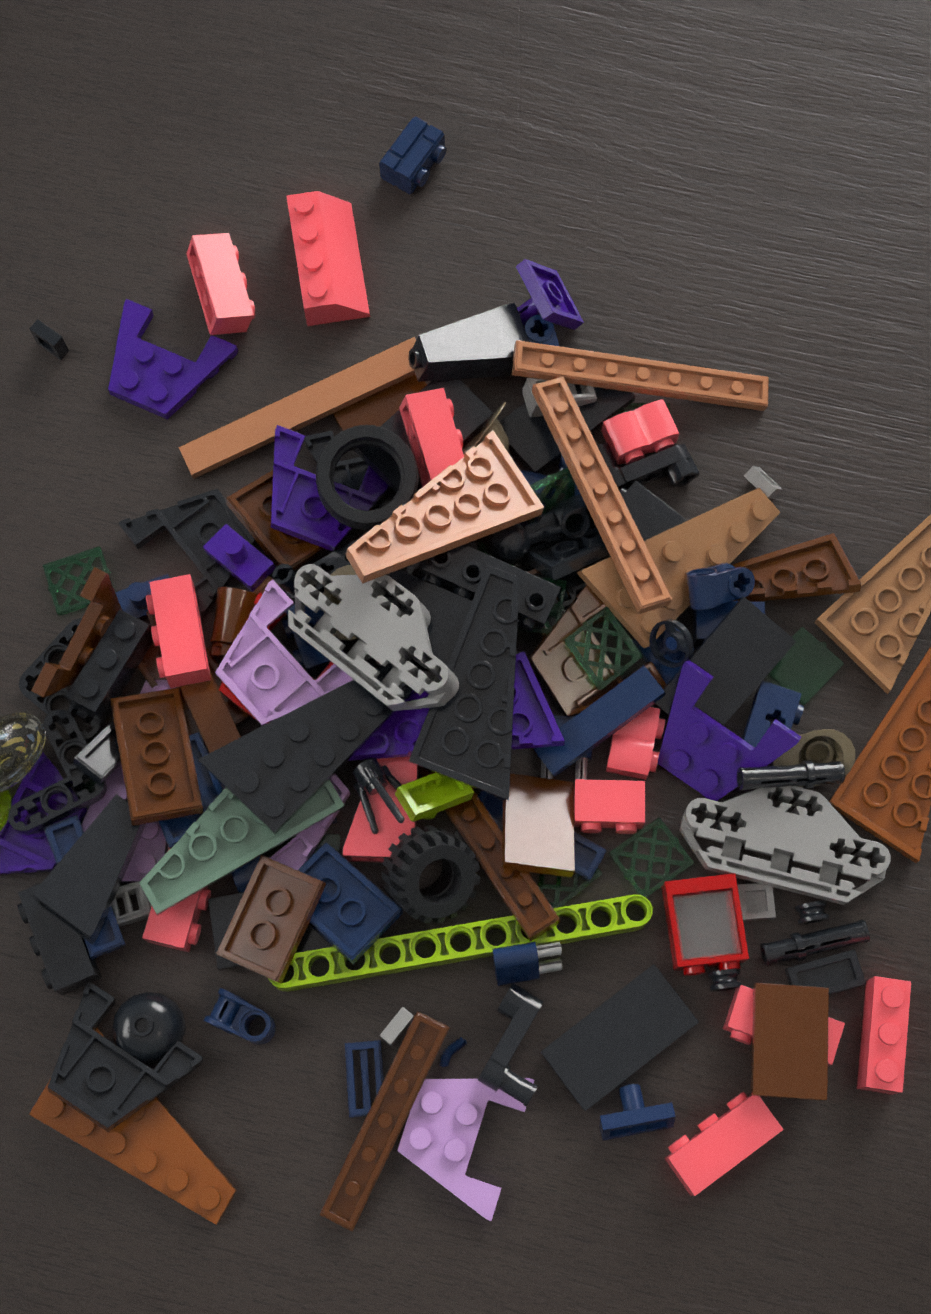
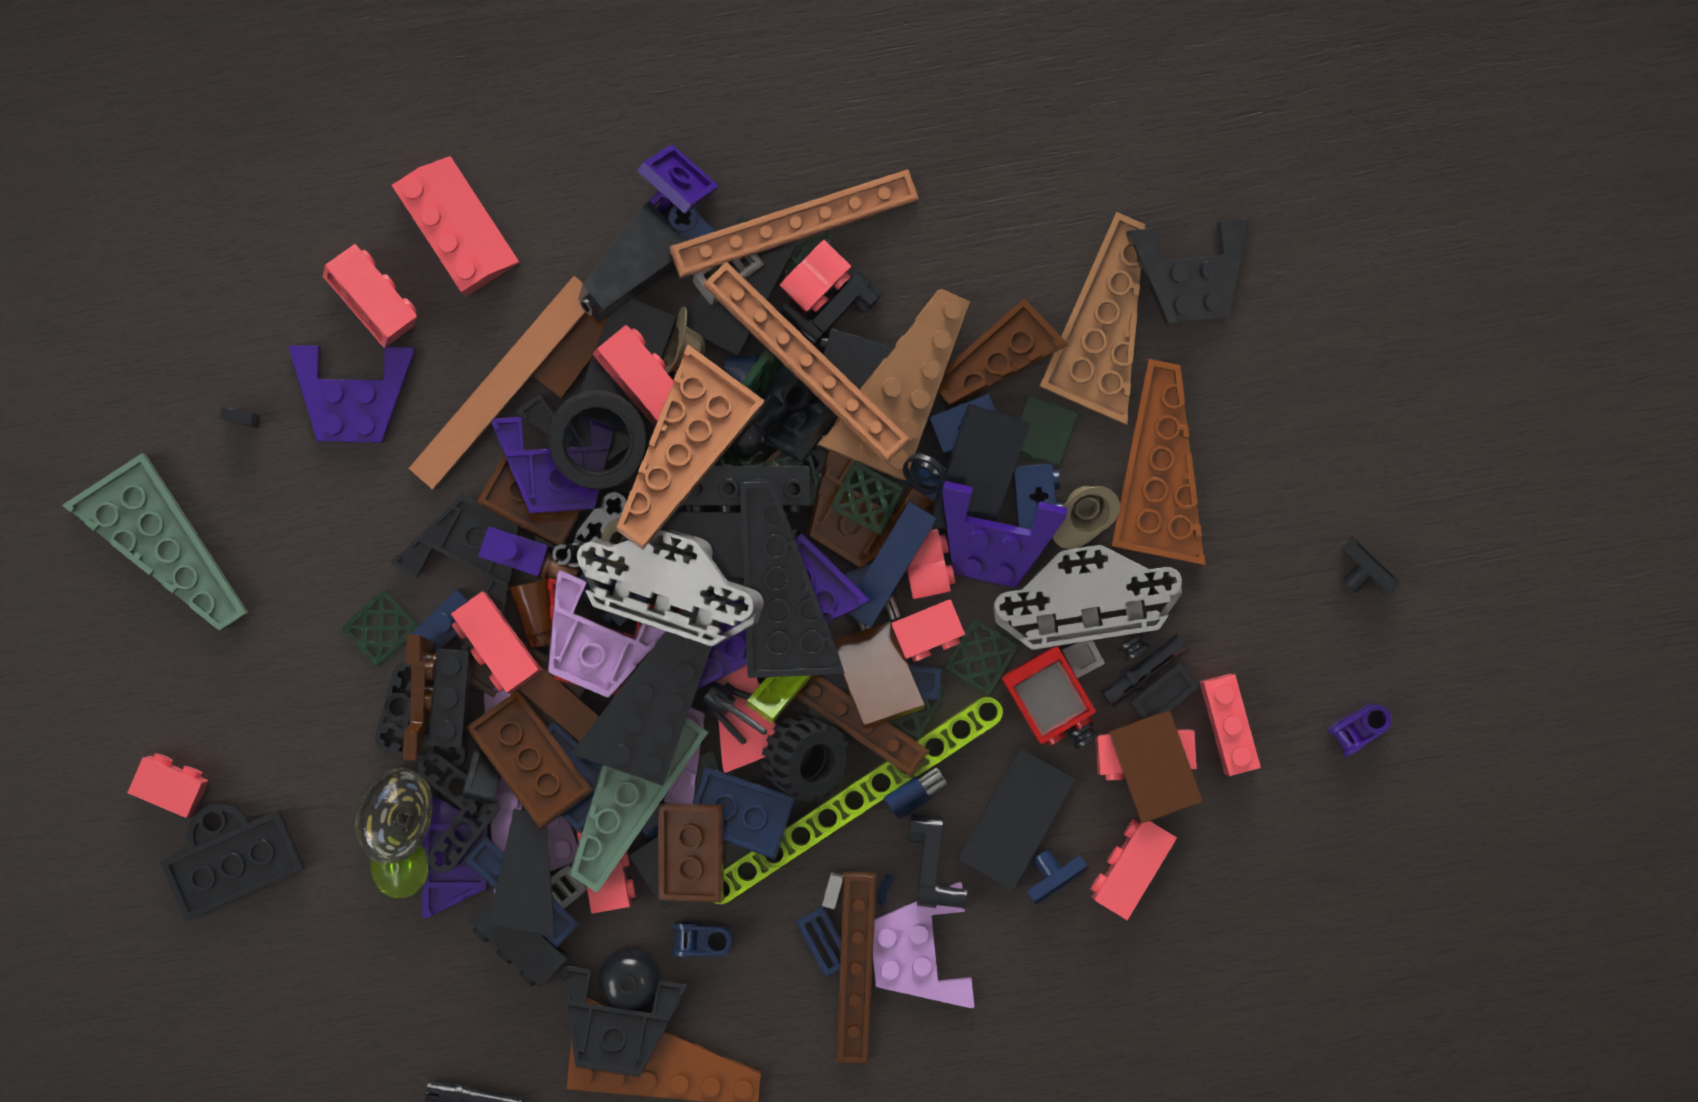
camera: 25 degrees left, 15 degrees up
(413, 155) = (487, 84): dark blue brick -> none
(718, 585) = (939, 403): dark blue piece -> none
(763, 481) = (943, 277): light grey tile -> none
(804, 774) = (1081, 536): black pin -> none

